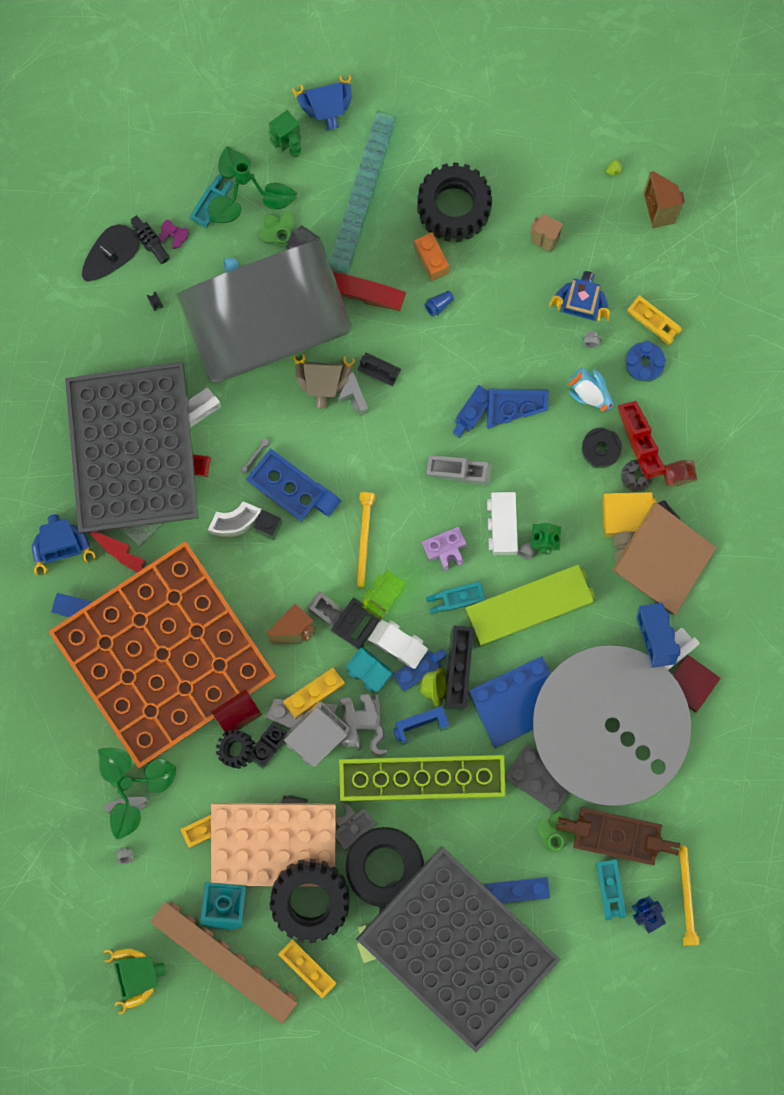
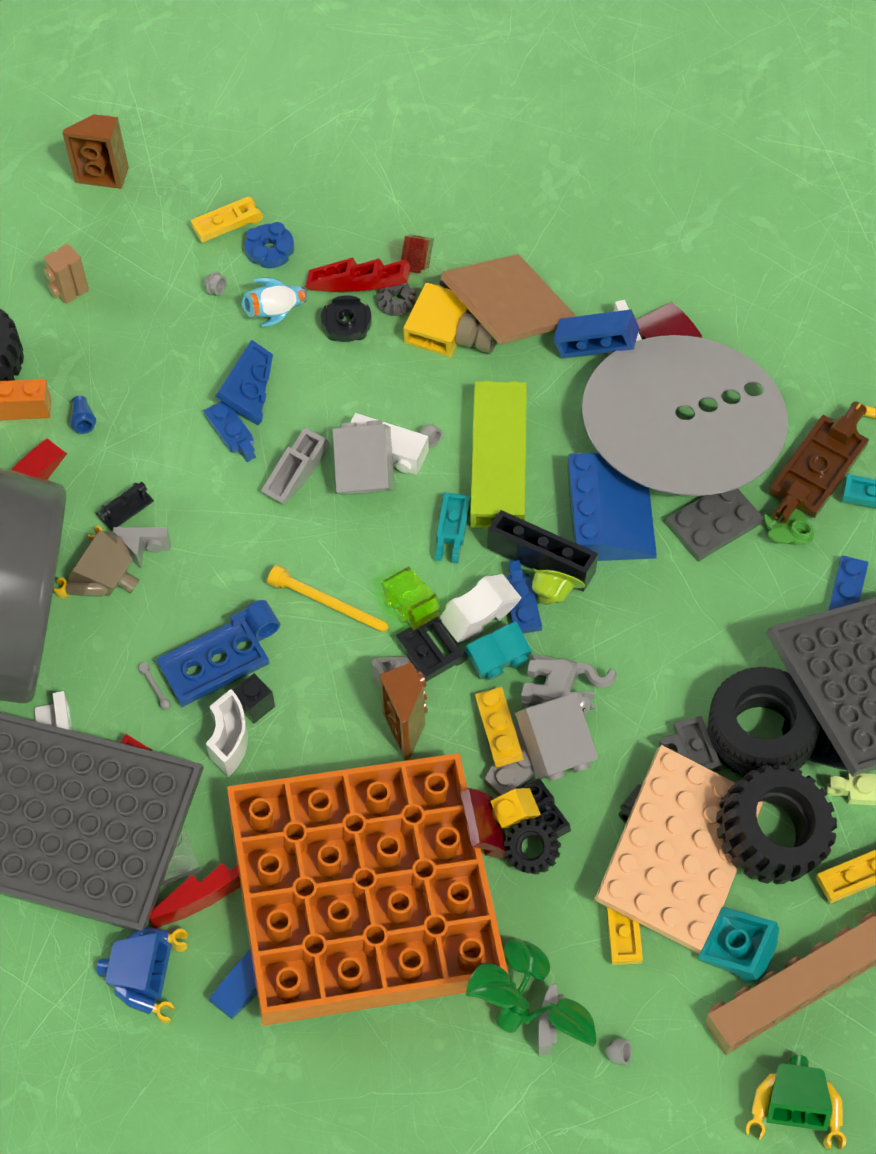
camera: 65 degrees left, 20 degrees down
(254, 728) = (514, 807): none -> yellow brick
(419, 720) = (597, 594): blue panel -> none
(422, 778) = (663, 643): lime brick -> none
(445, 547) = (385, 514): lavender plate -> none
(477, 515) = (363, 458): none -> light grey brick
(546, 537) = (425, 405): green brick -> none
(582, 299) = (165, 271): blue torso -> none
(614, 168) = (30, 195): lime hinge -> none

